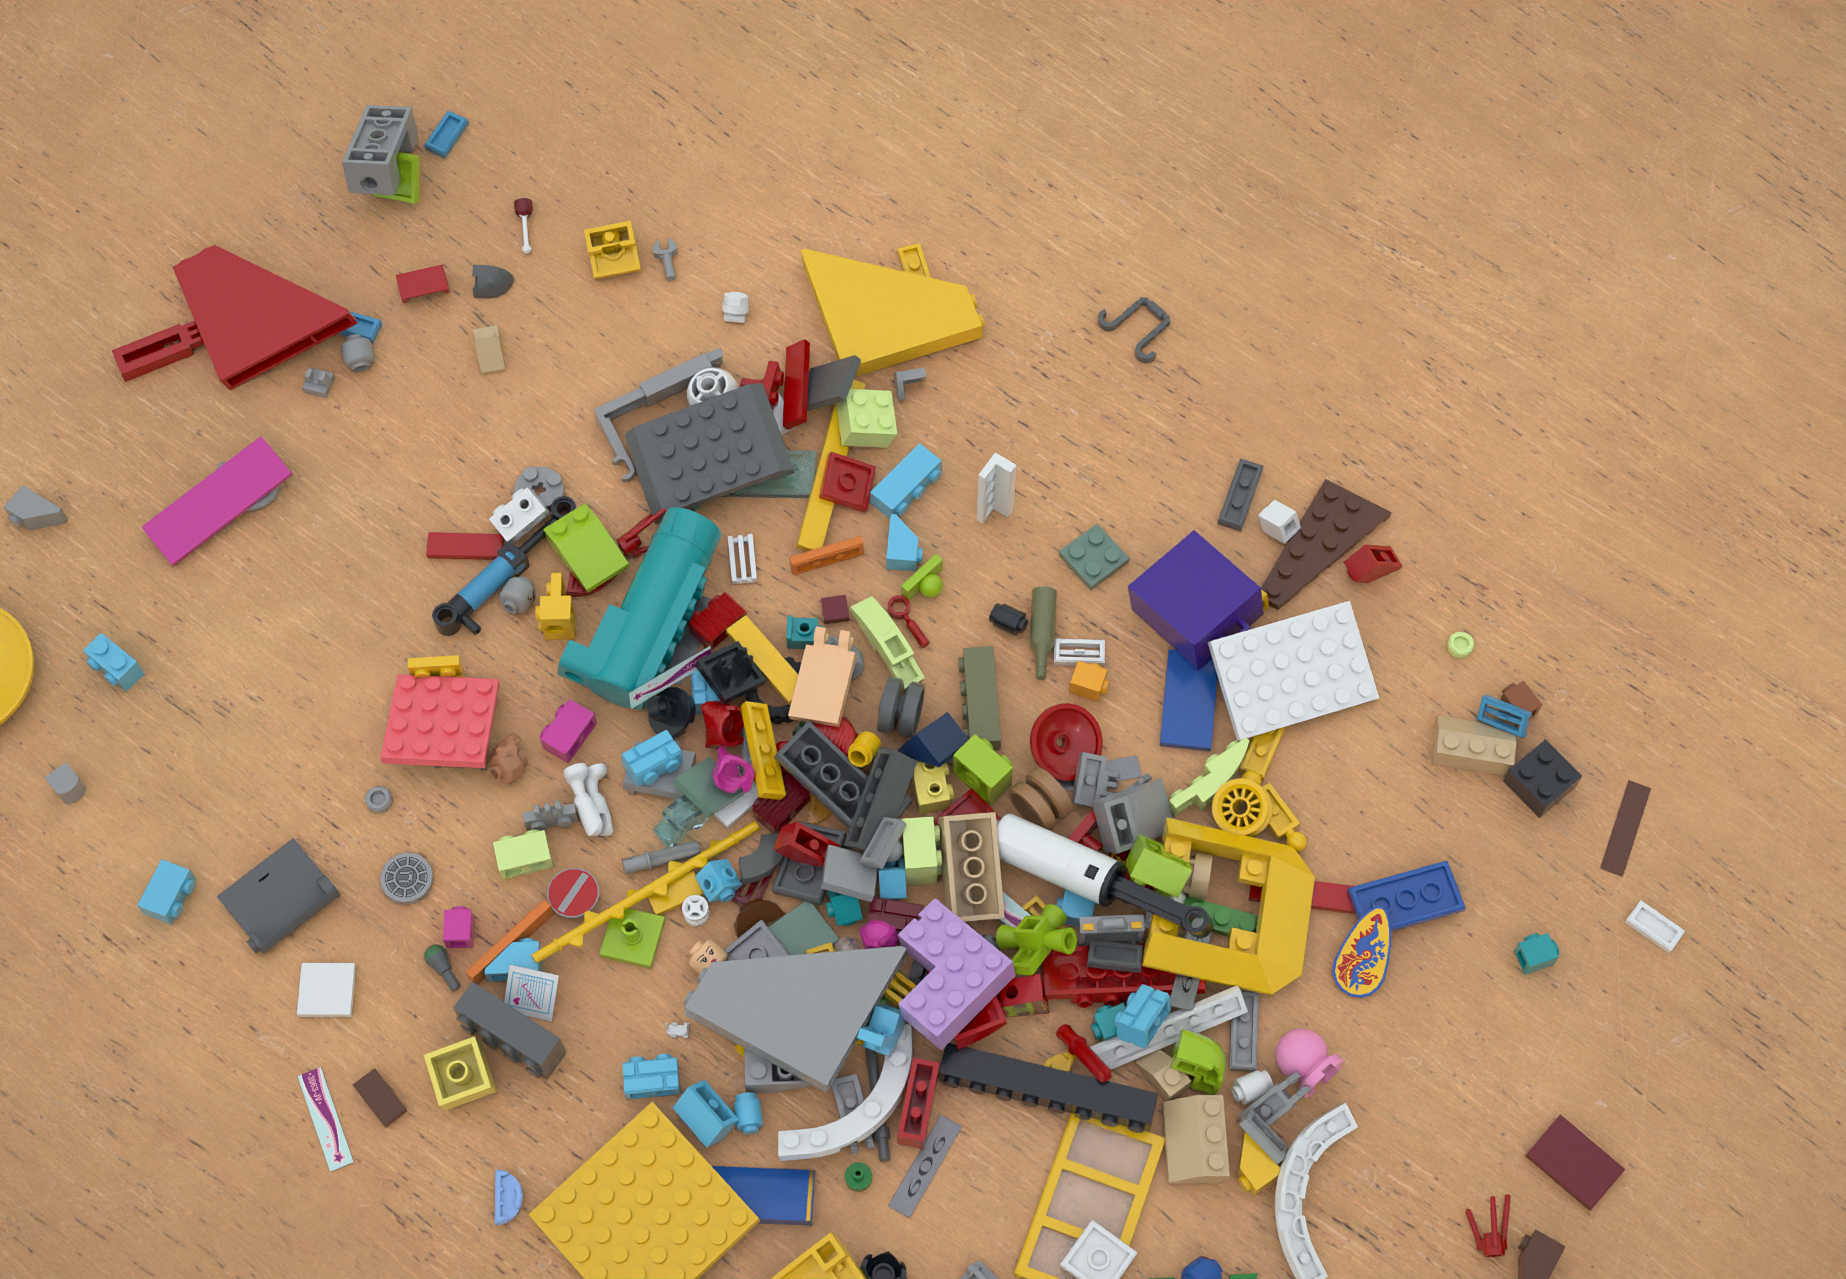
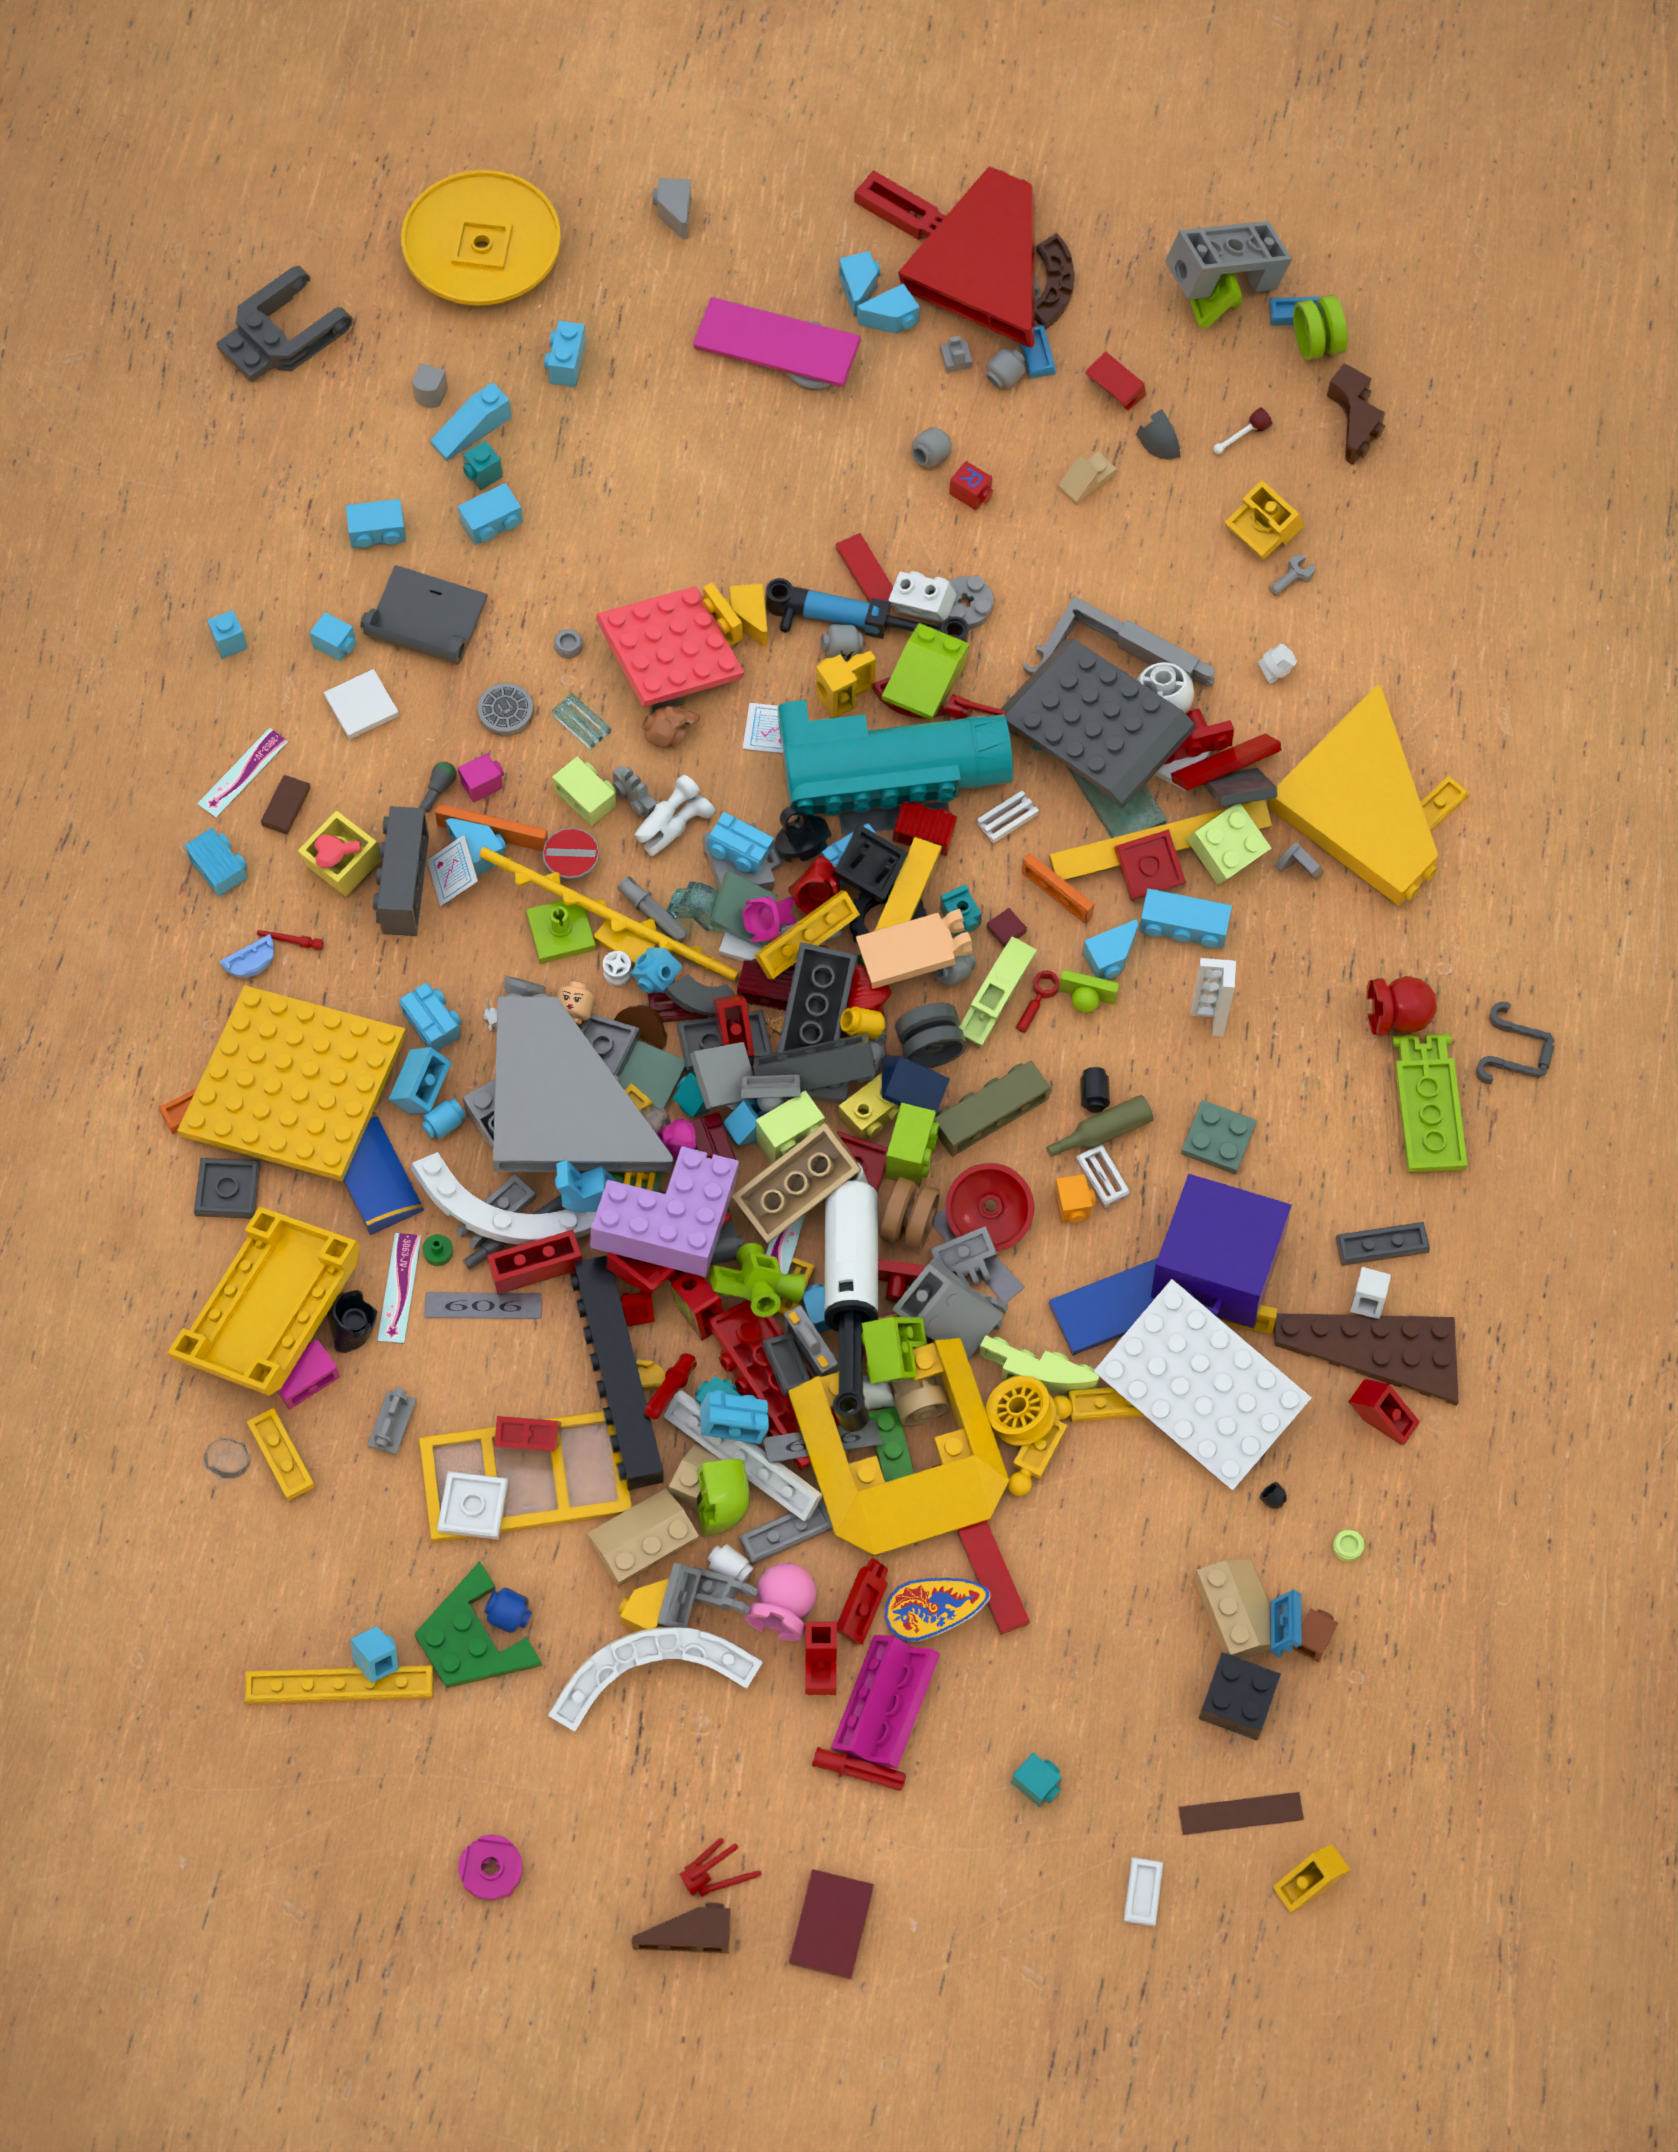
camera: 60 degrees right, 0 degrees up
(124, 768) = (473, 421): none -> medium azure slope
(172, 780) = (482, 465): none -> teal brick
(190, 1064) = (227, 634): none -> medium azure brick
(201, 414) = (858, 278): none -> medium azure slope
(221, 798) = (490, 514): none -> medium azure brick
(247, 405) = (890, 311): none -> medium azure slope
(251, 979) = (333, 636): none -> medium azure brick
(300, 274) = (1060, 280): none -> reddish brown tile
(389, 441) = (931, 447): none -> light grey head
(399, 1180) = (216, 862): none -> medium azure brick
(436, 840) = (576, 730): none -> clear light blue tile
(443, 431) = (971, 485): none -> red brick
(444, 643) = (749, 606): none -> yellow slope
(461, 1075) = (332, 850): none -> coral rock
(479, 123) = (1320, 327): none -> lime wheel
(517, 1145) = (303, 941): none -> red piece
(551, 689) = (762, 728): none -> white sticker
(568, 730) = (730, 761): dark pink brick -> none
(570, 141) = (1364, 421): none -> reddish brown arch
(666, 679) = (823, 808): sticker -> none
(672, 993) = (522, 987): none -> light grey piece
(872, 1225) = (399, 1288): none -> sticker
(999, 1043) = (637, 1308): none -> red tile
(1064, 1183) = (527, 1433): none -> red hinge
(1066, 379) = (1404, 1005): none -> red tile
(1151, 403) = (1429, 1104): none -> lime hinge
(1333, 1004) = (863, 1602): none -> red hinge
(1365, 1059) = (820, 1658): none -> red brick
(1395, 669) = (1273, 1496): none -> black hinge
(1411, 896) = (1024, 1623): blue tile -> none
(1420, 1029) = (885, 1701): none -> dark pink slope
(1455, 1086) = (858, 1769): none -> red axle
(1702, 804) = (1311, 1877): none -> yellow slope

